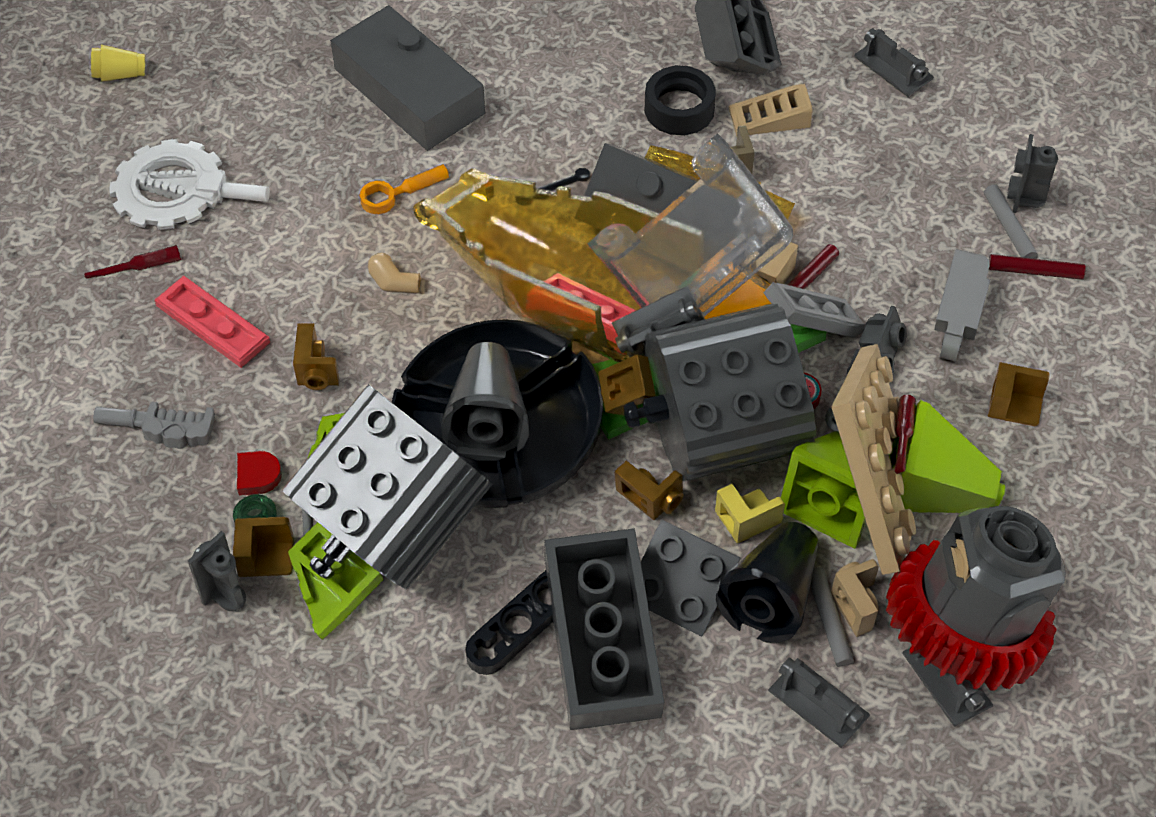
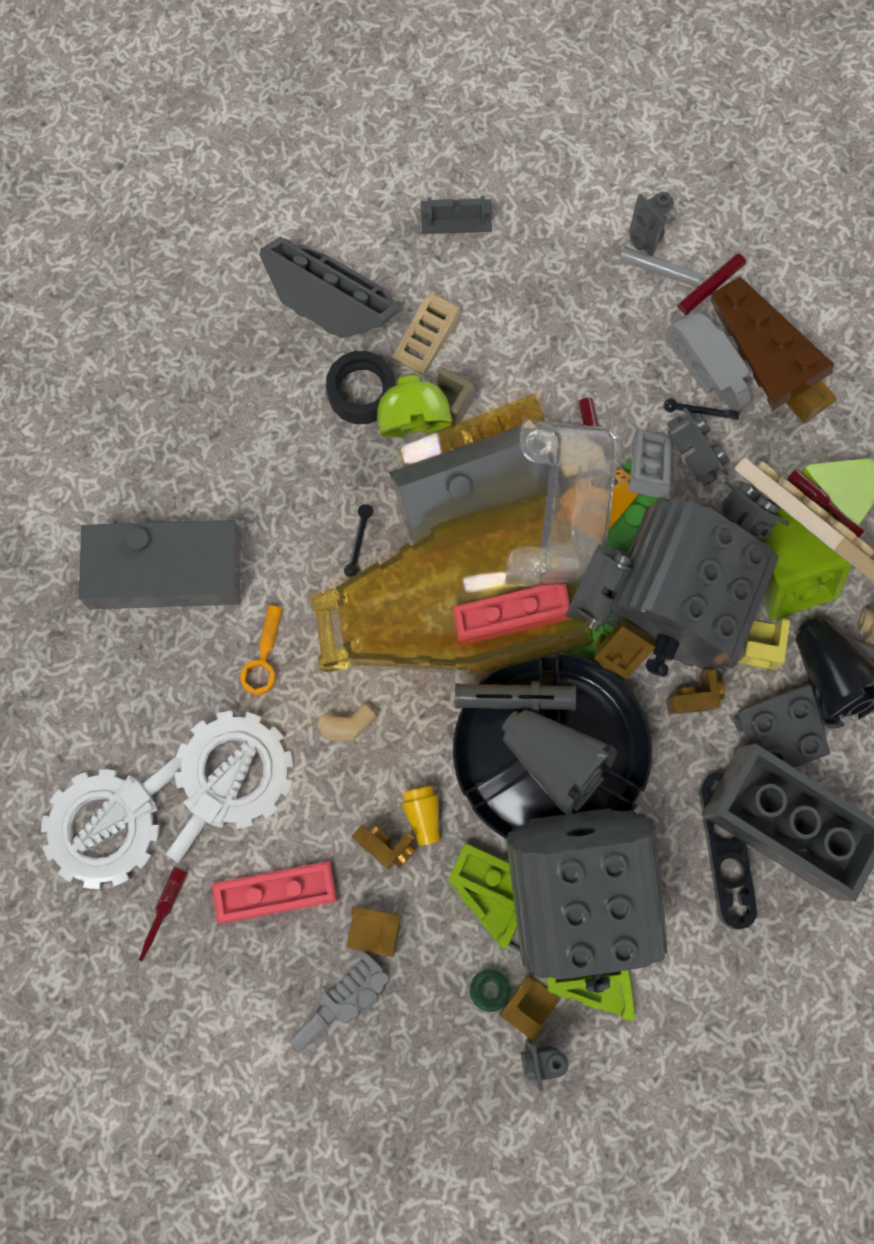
camera: 50 degrees left, 20 degrees up
(238, 405) = (373, 931): none -> pearl gold panel
(255, 230) = (215, 798): none -> white bar
(257, 472) = (450, 960): red tile -> none
(365, 367) = (422, 812): none -> yellow cone
(523, 353) = (563, 696): none -> dark grey pin
(686, 125) = (412, 408): none -> lime cylinder
(931, 353) = (671, 405): none -> black hinge
(1019, 330) = (775, 350): none -> reddish brown wing

